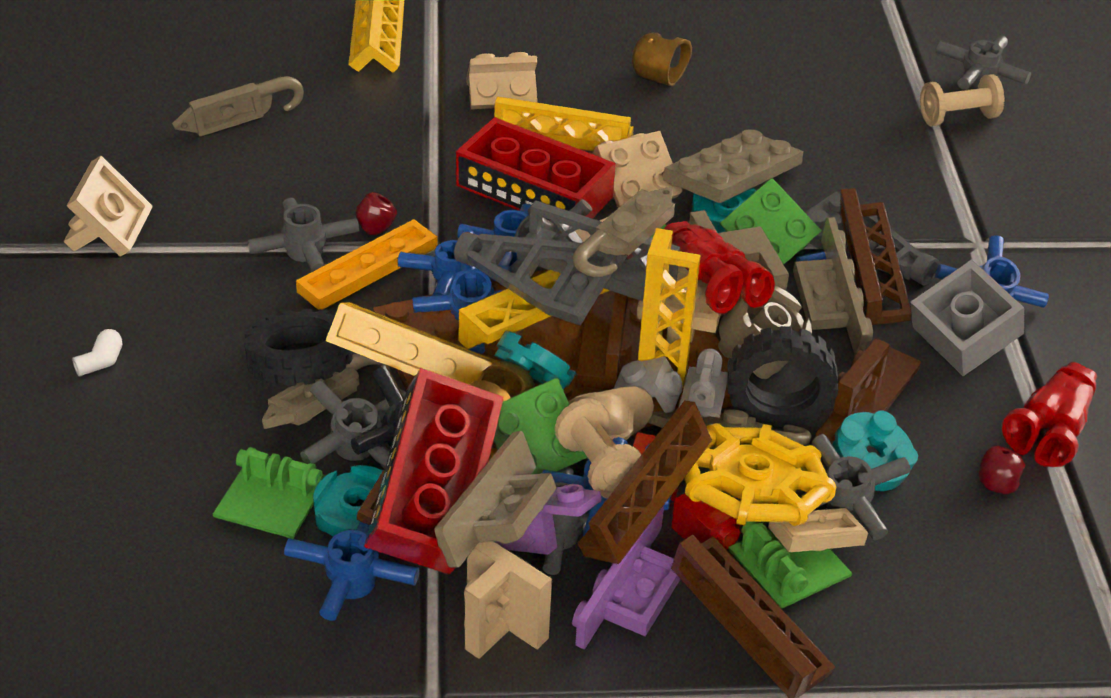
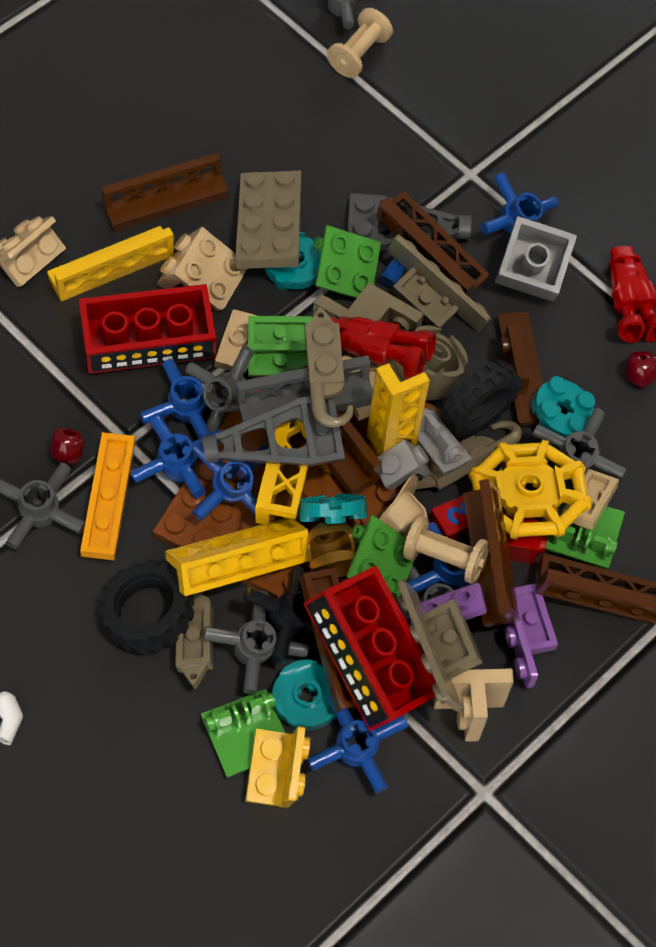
camera: 45 degrees left, 20 degrees up
(258, 529) = (276, 767): none -> yellow bracket
(653, 58) = (117, 144): pearl gold helmet -> none
(668, 116) = (164, 196): none -> reddish brown fence

